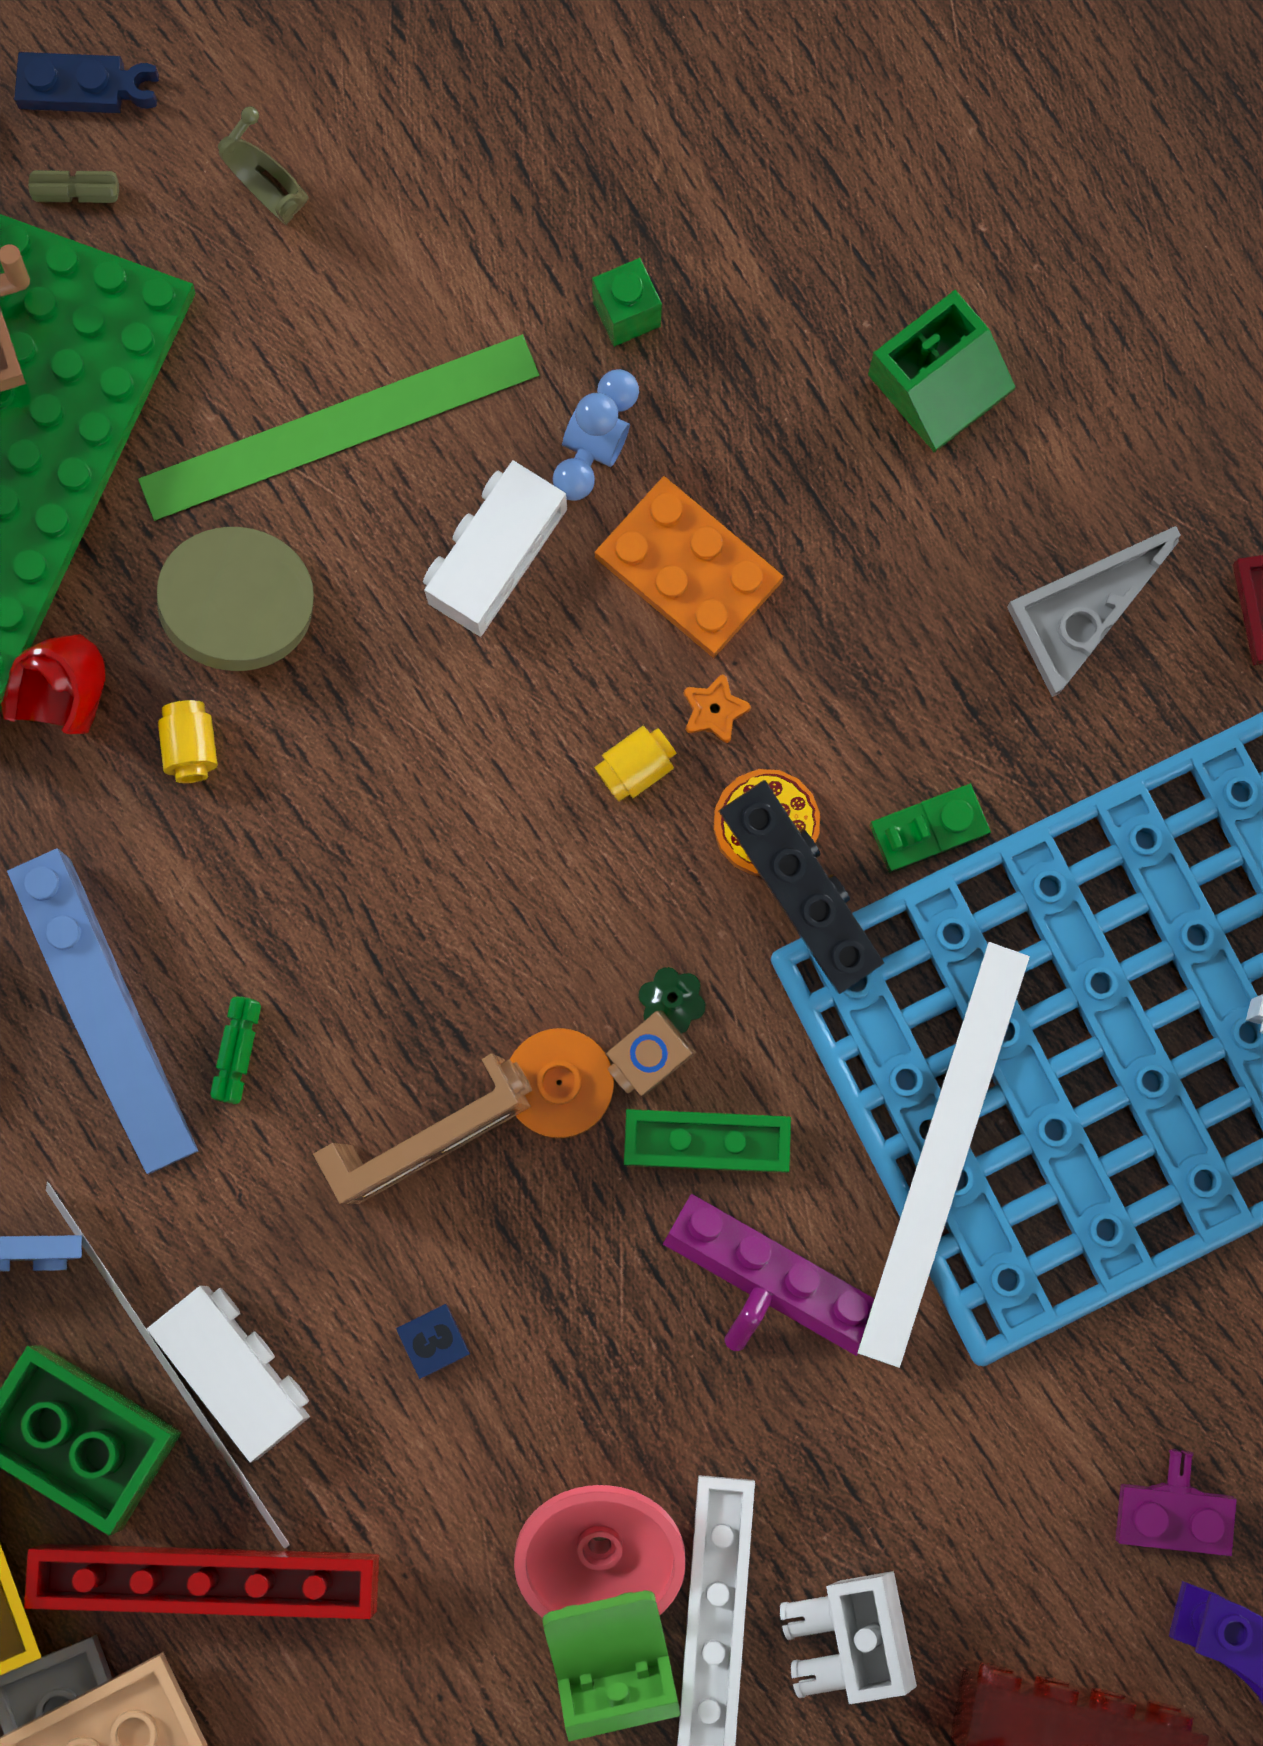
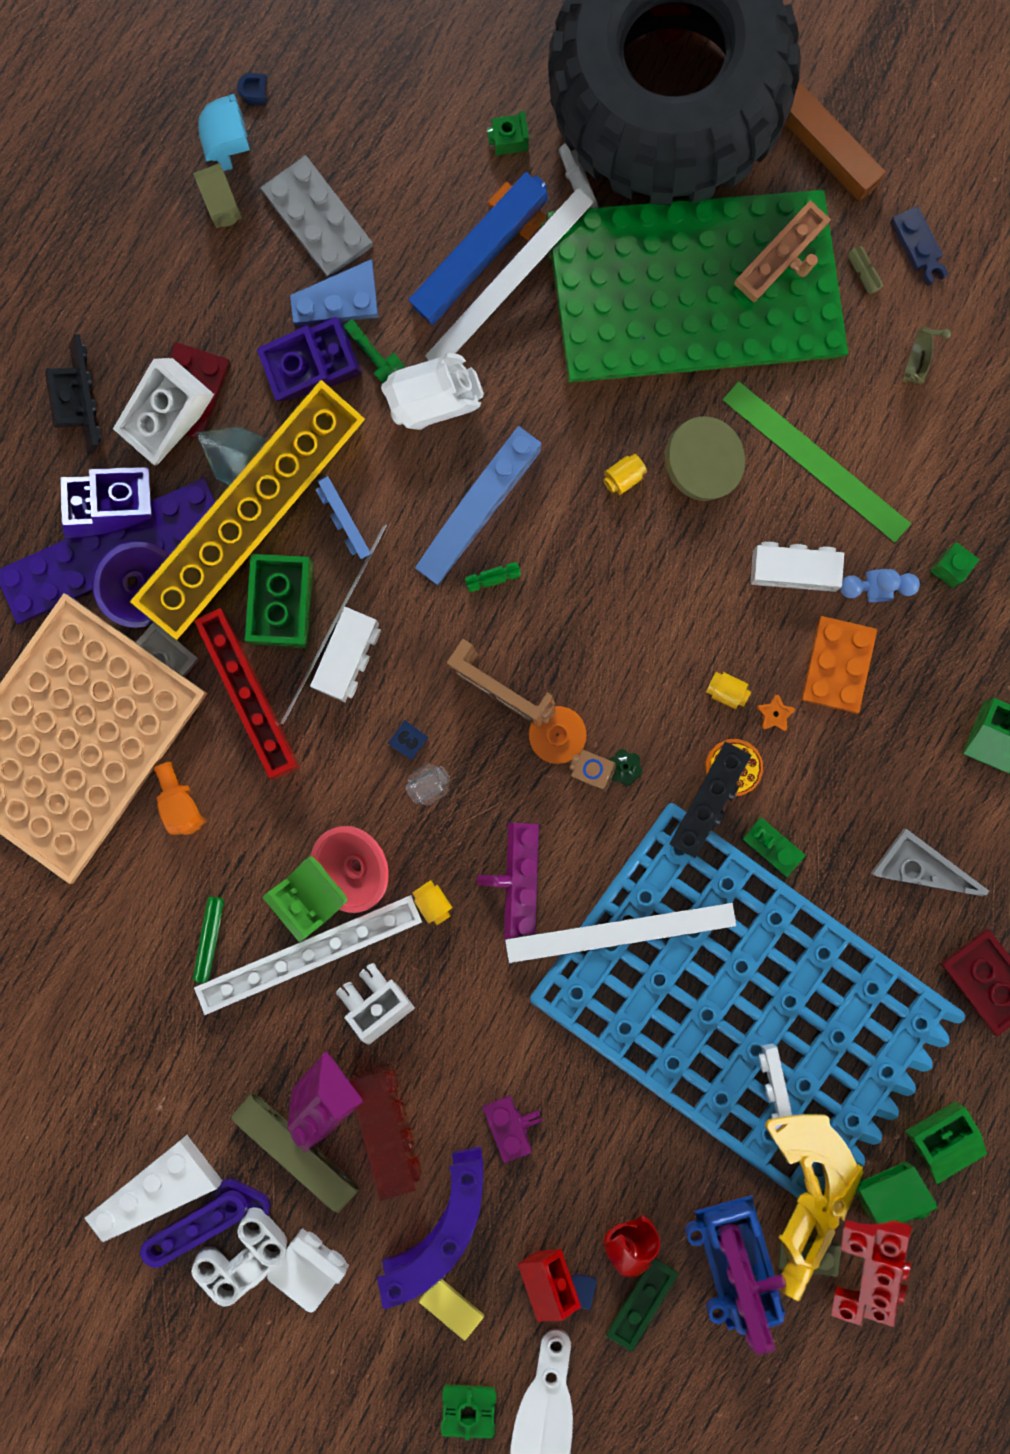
camera: 65 degrees right, 5 degrees up
(56, 684) = (618, 398): red piece -> none
(526, 1347) = (427, 784): none -> clear head
(707, 1141) = (567, 818): green plate -> none
(731, 1446) = (432, 903): none -> yellow brick

